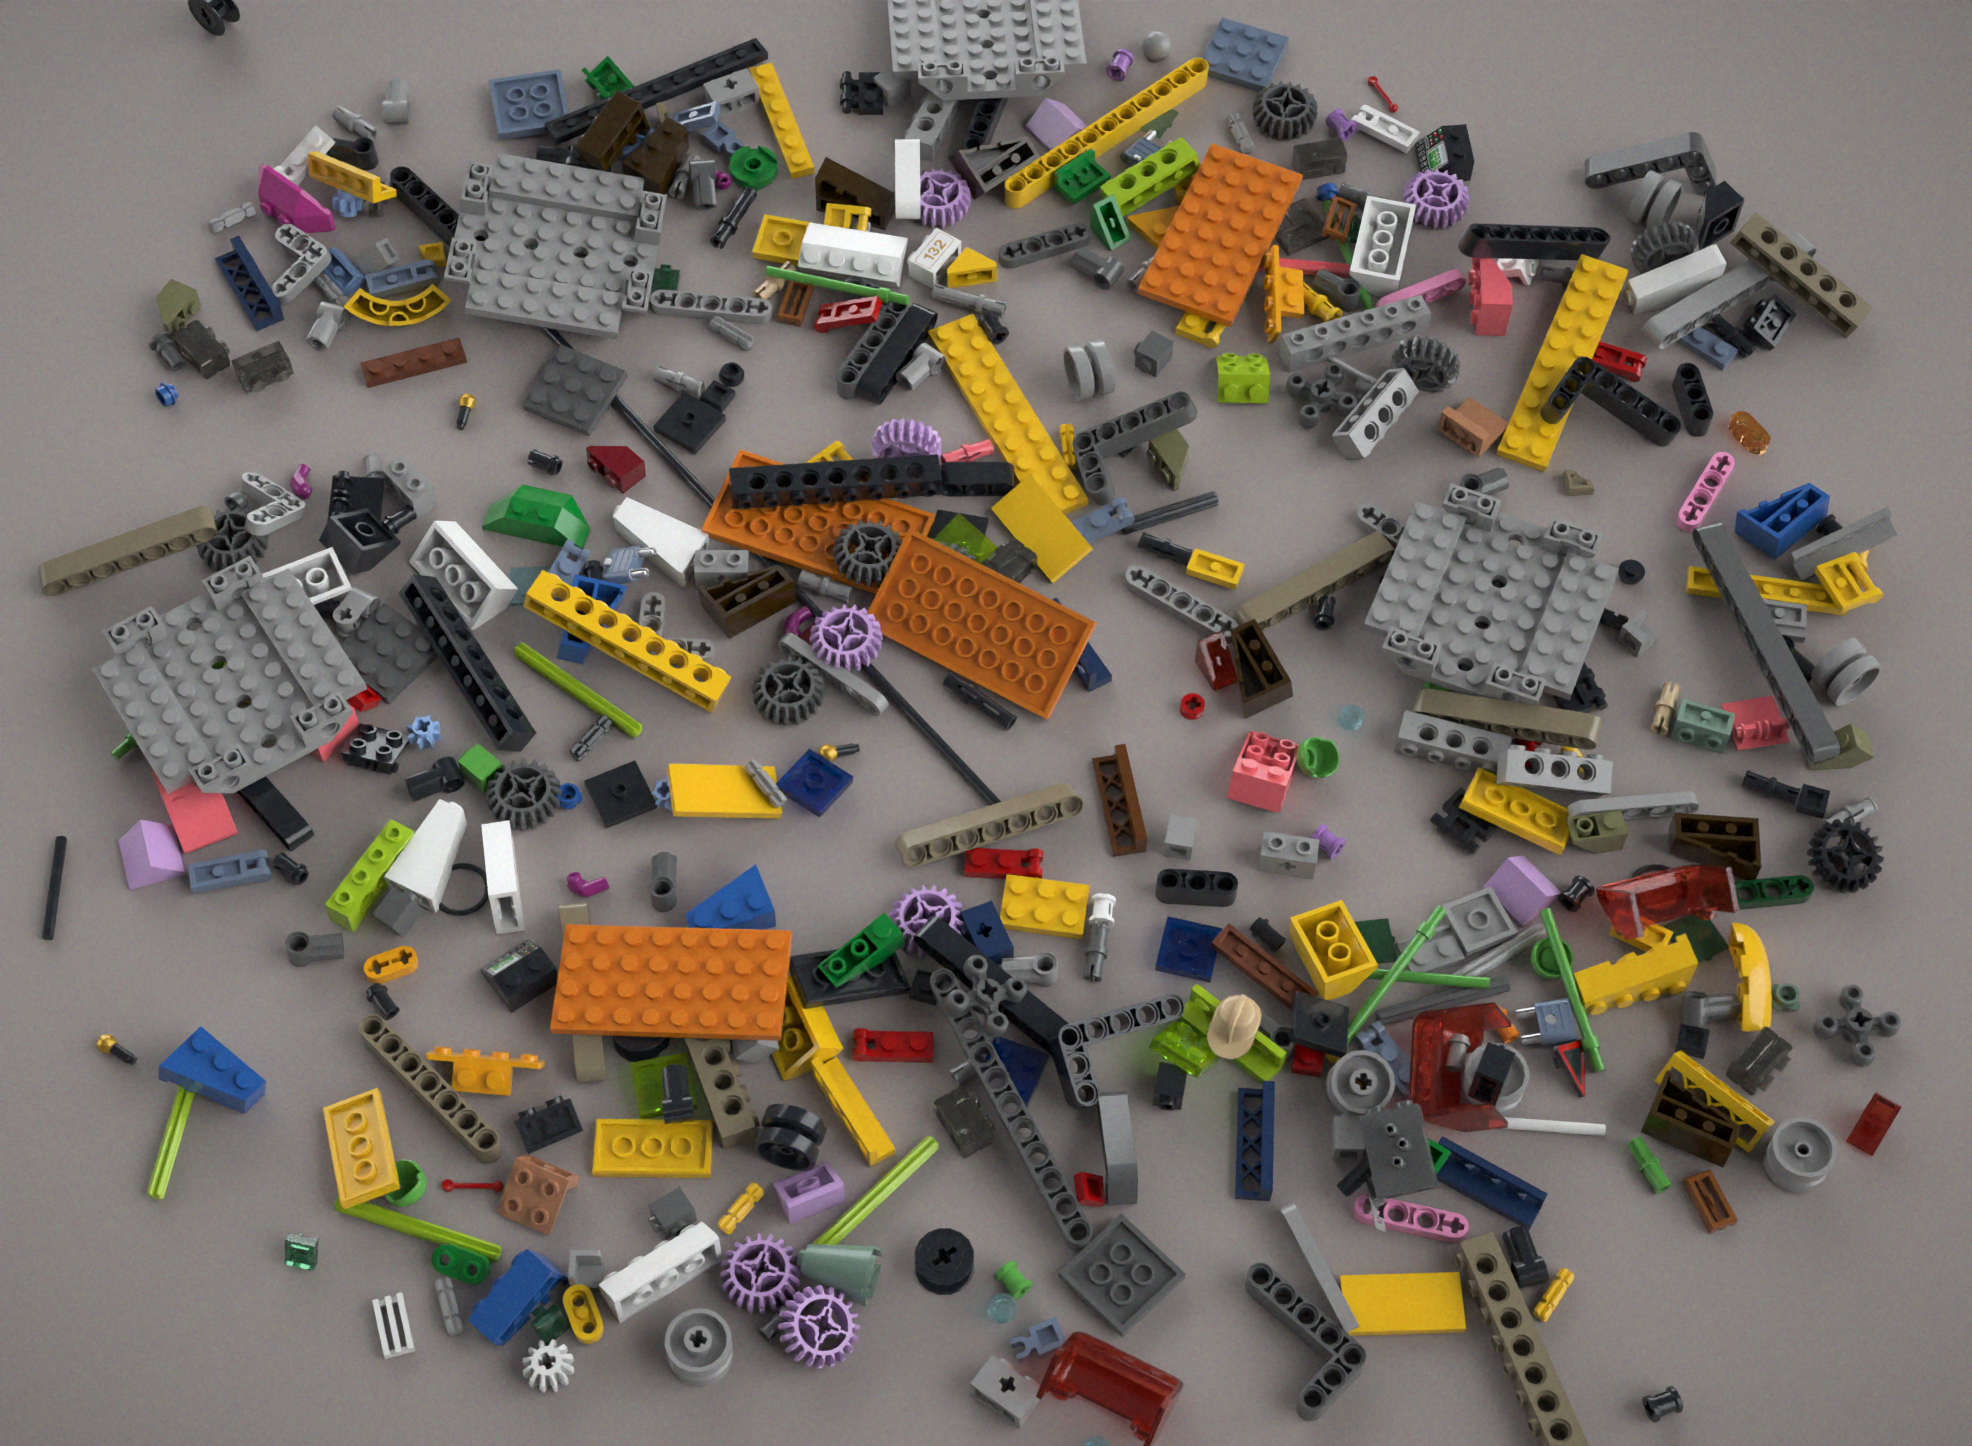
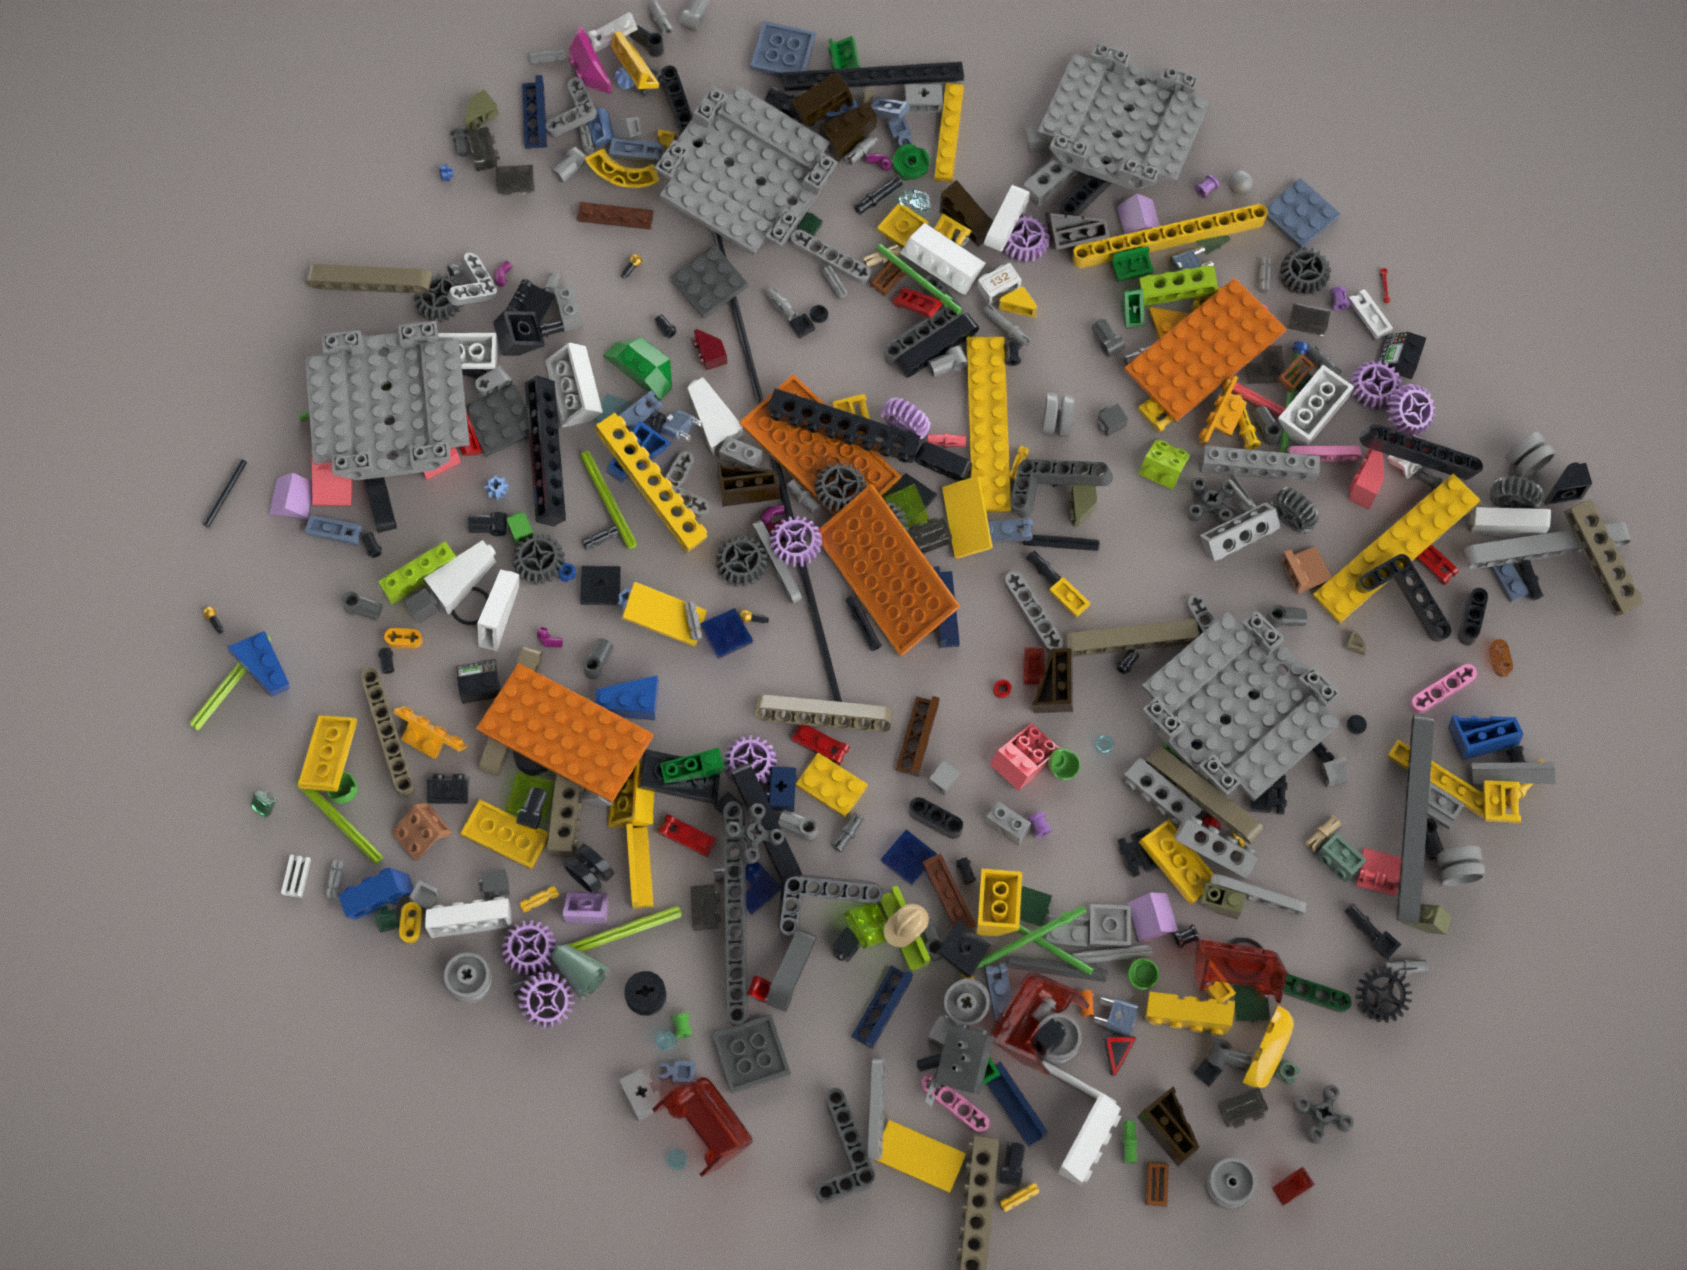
camera: 25 degrees right, 10 degrees up
(375, 748) = (462, 484): black hinge -> none
(448, 1185) = (370, 800): red hinge -> none
(459, 1263) = (352, 854): green plate -> none
(548, 1377) = (378, 938): white gear -> none
(689, 423) = (774, 337): black plate -> none
(703, 178) = (870, 157): dark grey piece -> none
(784, 203) = (917, 199): none -> clear light blue plate
(870, 94) = (1018, 140): black plate -> none
(1042, 241) = (1080, 309): dark grey beam -> none
(1102, 910) = (866, 806): white bush -> none
(1307, 1061) = (945, 969): red plate -> none
(1492, 202) = (1403, 401): none -> lavender gear
(1589, 1042) = (1137, 1042): bright green bar -> none
(1601, 1183) = (1090, 1139): none -> white slope
(1661, 156) = (1548, 422): dark grey beam -> none
(1718, 842) = (1301, 945): dark brown wedge -> none
(1723, 1094) = (1205, 1119): yellow fence -> none
(1769, 321) = (1563, 581): black bracket -> none

